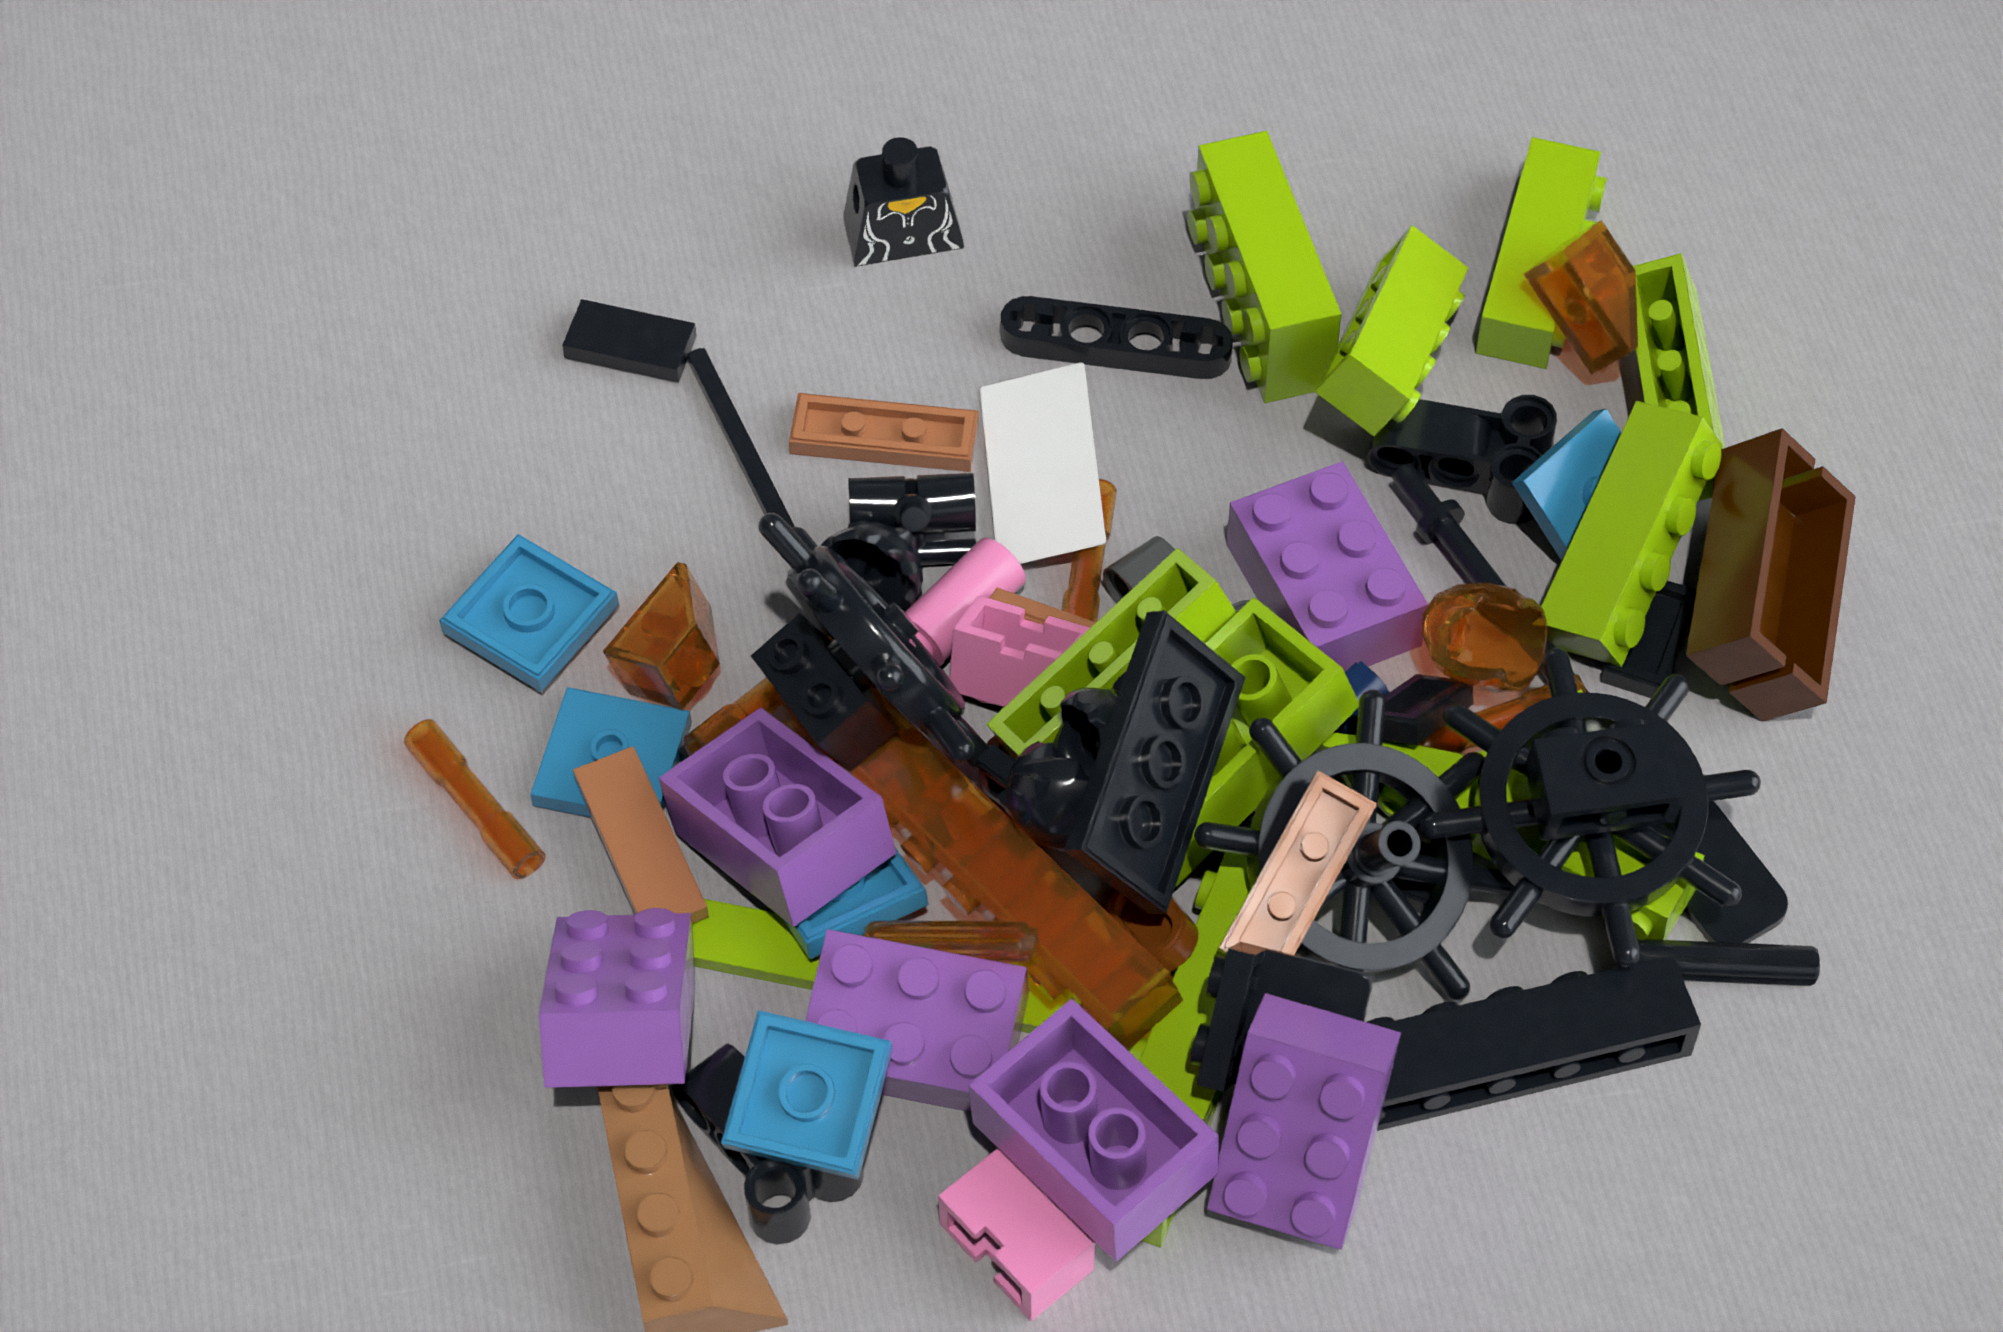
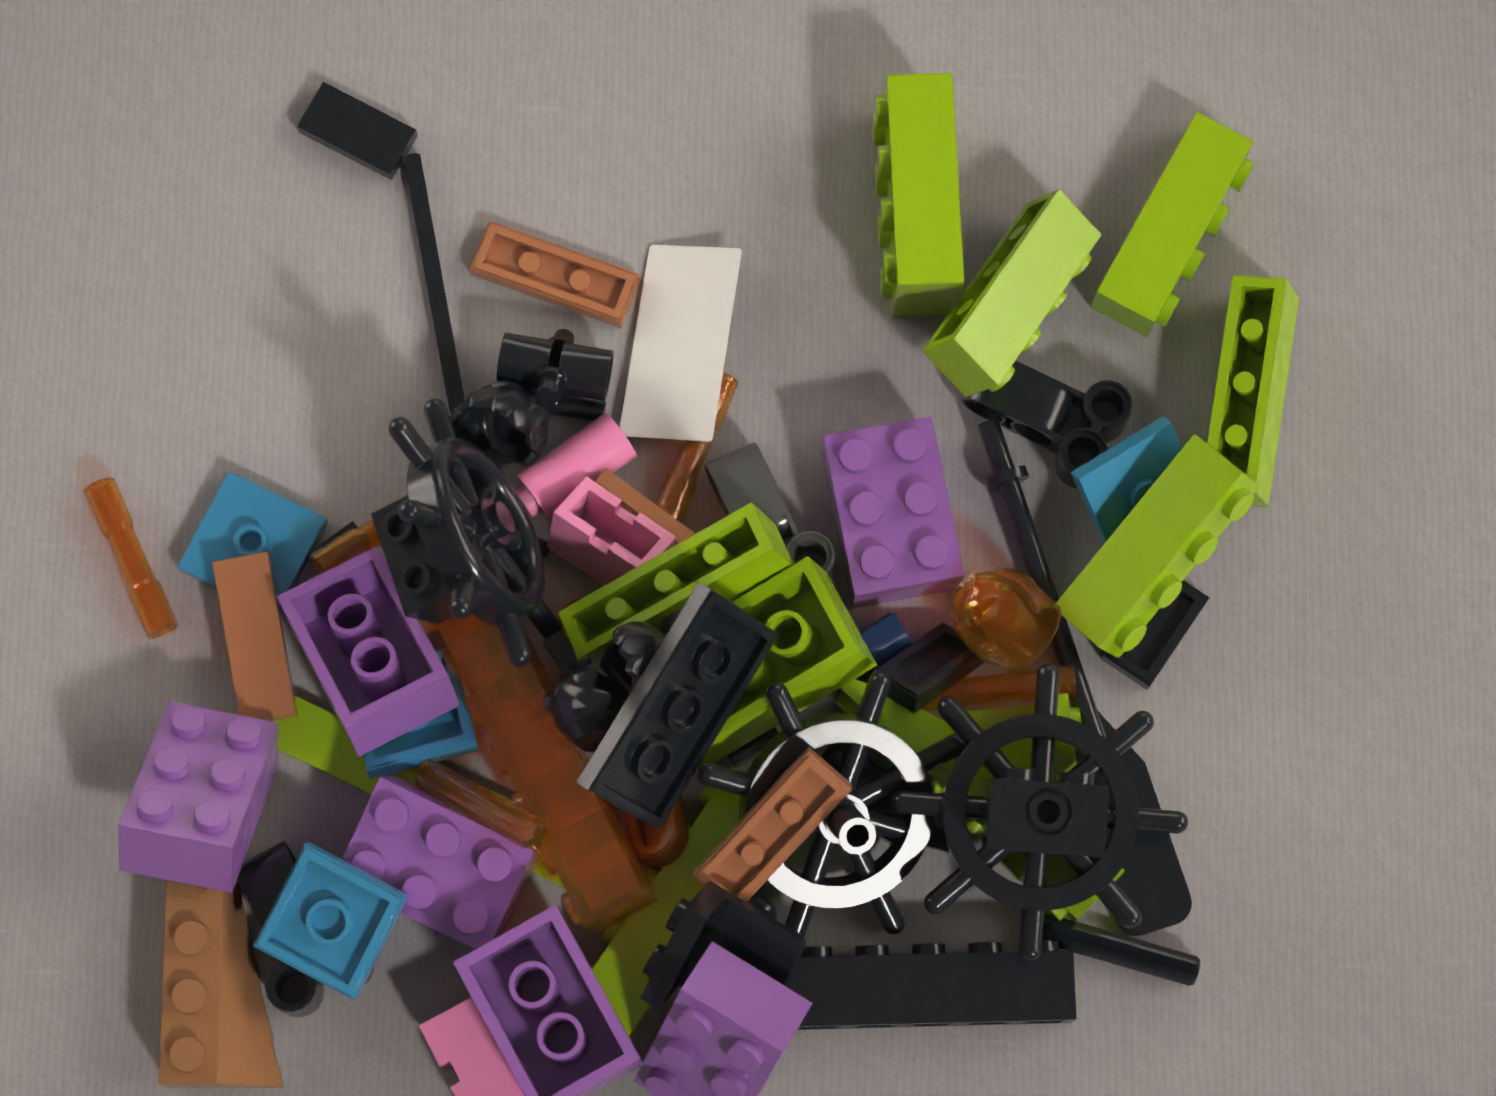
camera: 10 degrees right, 20 degrees up
(529, 612) = (213, 390): dark azure plate -> none
(667, 643) = (323, 450): clear orange slope -> none
(900, 205) = (622, 54): black torso -> none
(1114, 346) = (783, 215): black beam -> none
(1590, 295) = (1195, 296): clear orange slope -> none
(1772, 576) = (1267, 613): reddish brown piece -> none

